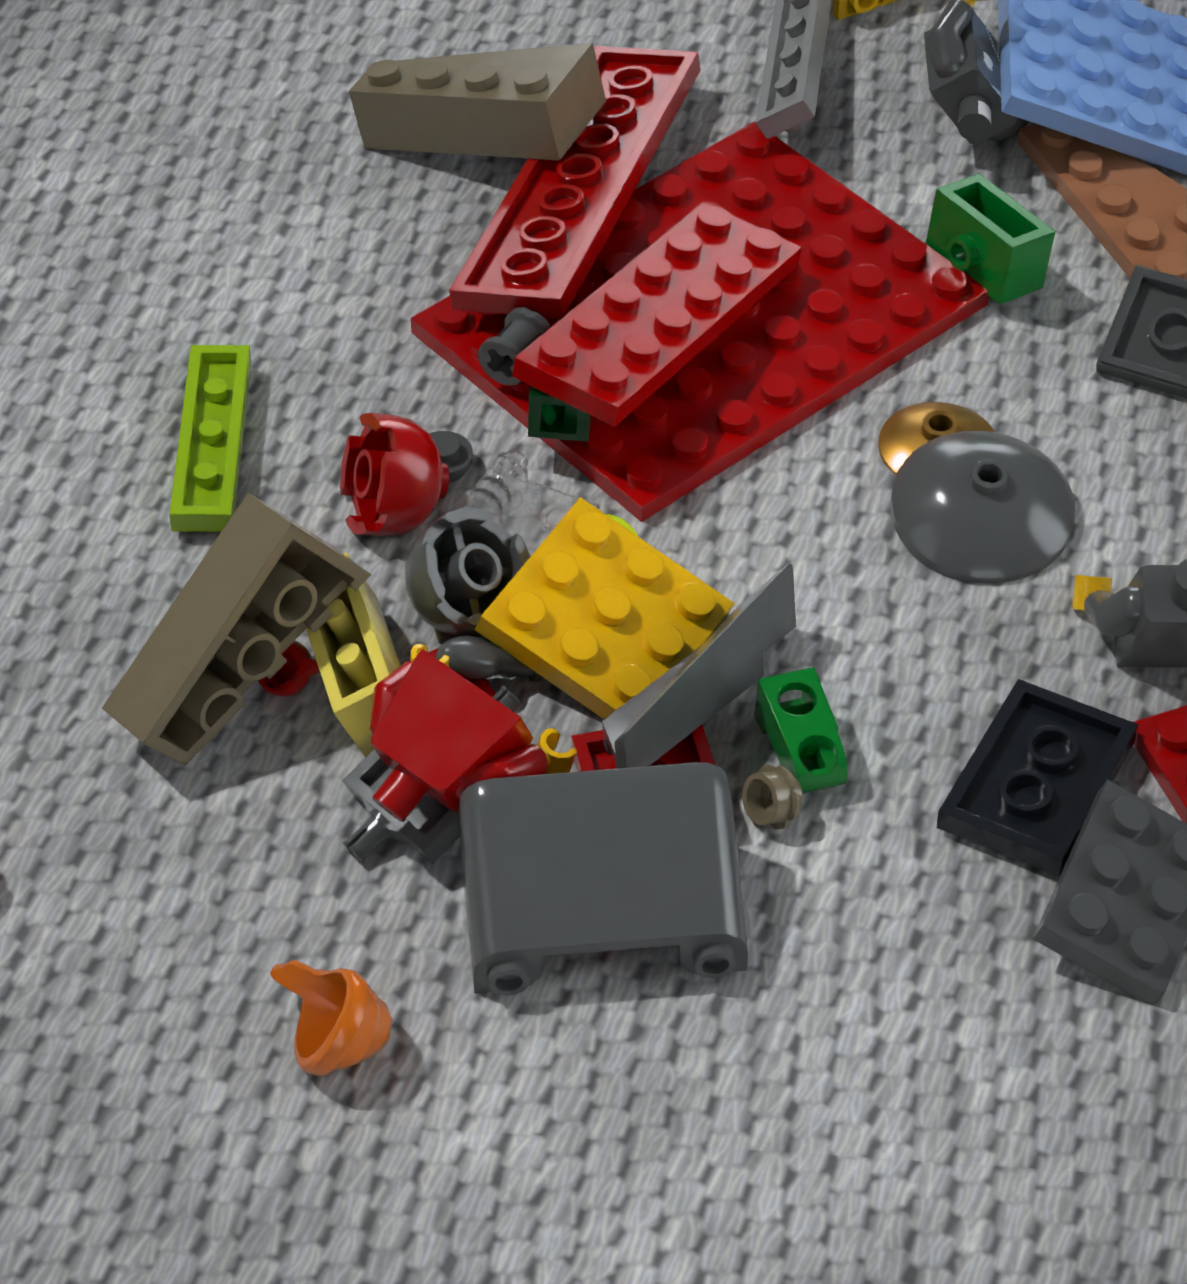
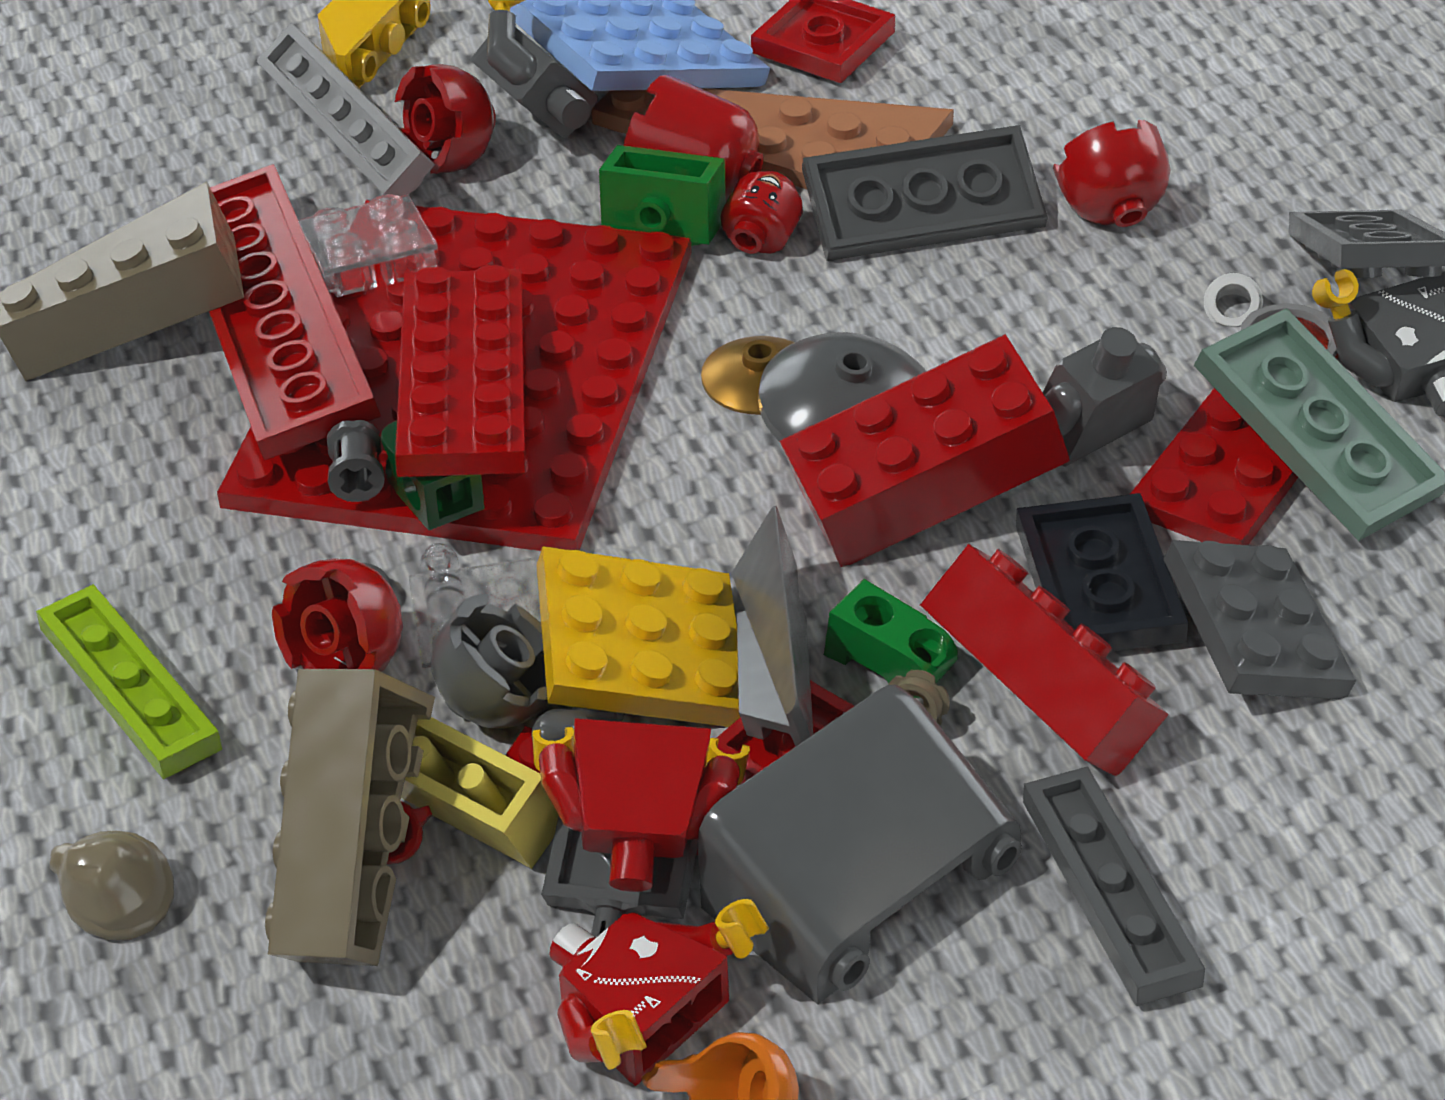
camera: 35 degrees left, 5 degrees down
(60, 592) = (114, 884): none -> dark tan hat
(340, 897) = (646, 984): none -> red torso
(700, 156) = (365, 236): none -> clear hinge
(780, 1040) = (1113, 886): none -> dark grey plate
(879, 79) = (446, 110): none -> red cylinder
(901, 821) = (1044, 660): none -> red brick
(971, 584) = (925, 450): none -> red brick
(1066, 298) = (761, 210): none -> red head
(1067, 192) = (697, 124): none -> red cylinder

